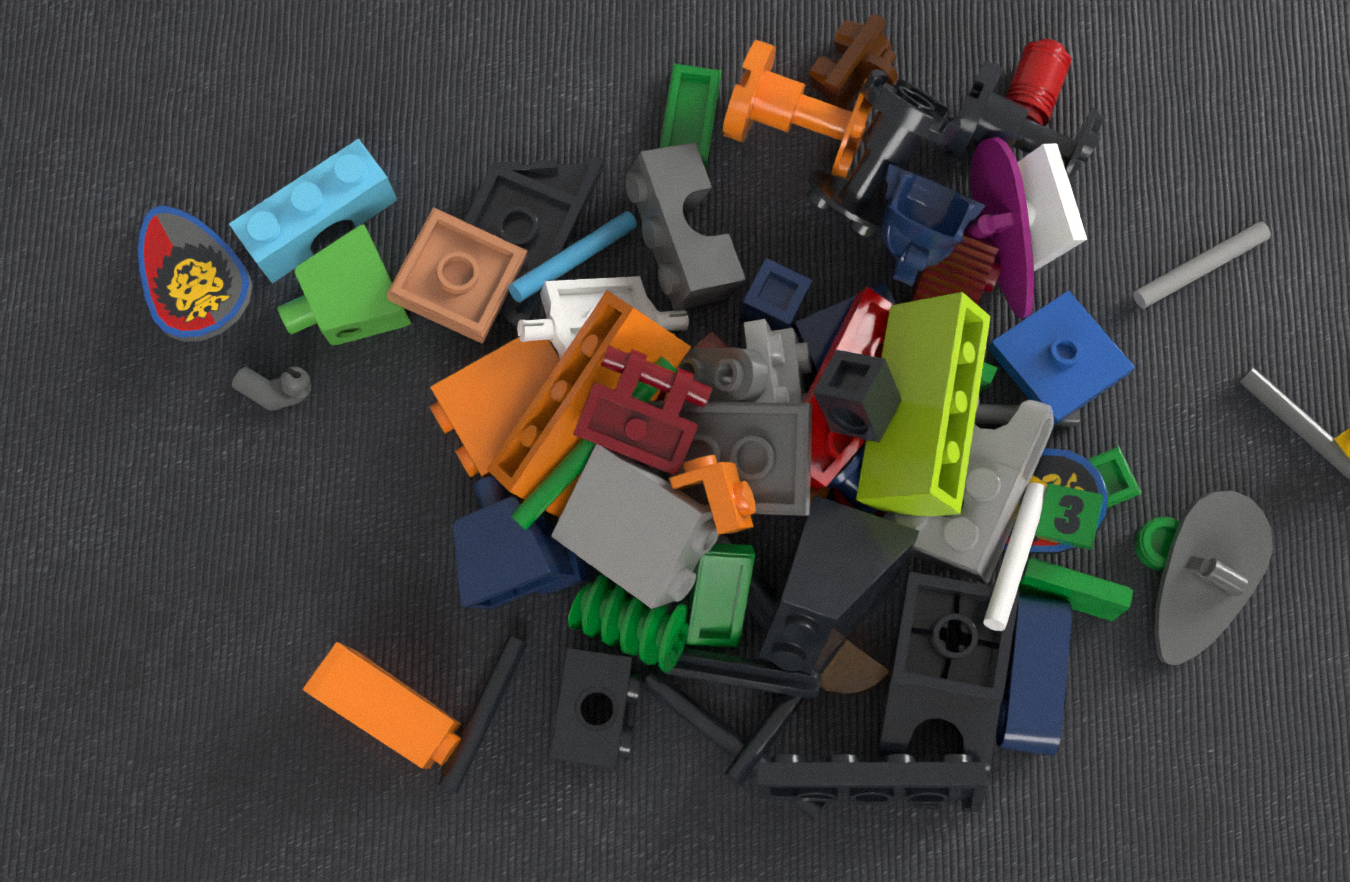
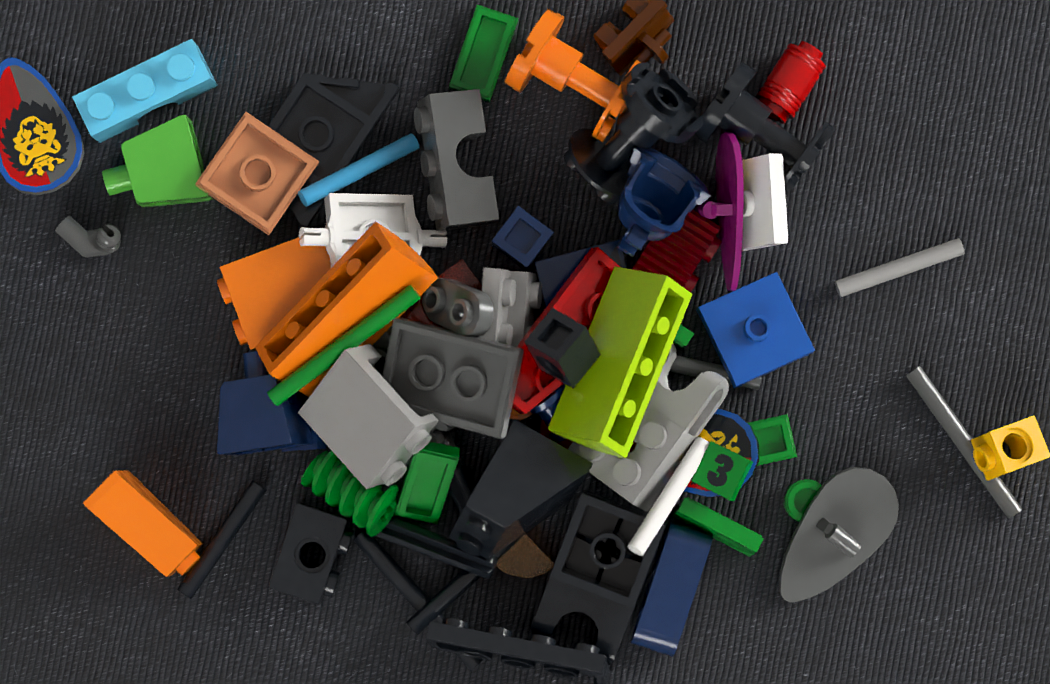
camera: 15 degrees right, 10 degrees up
(634, 426) = (376, 342): dark red plate -> none
(728, 496) = (439, 413): orange bracket -> none

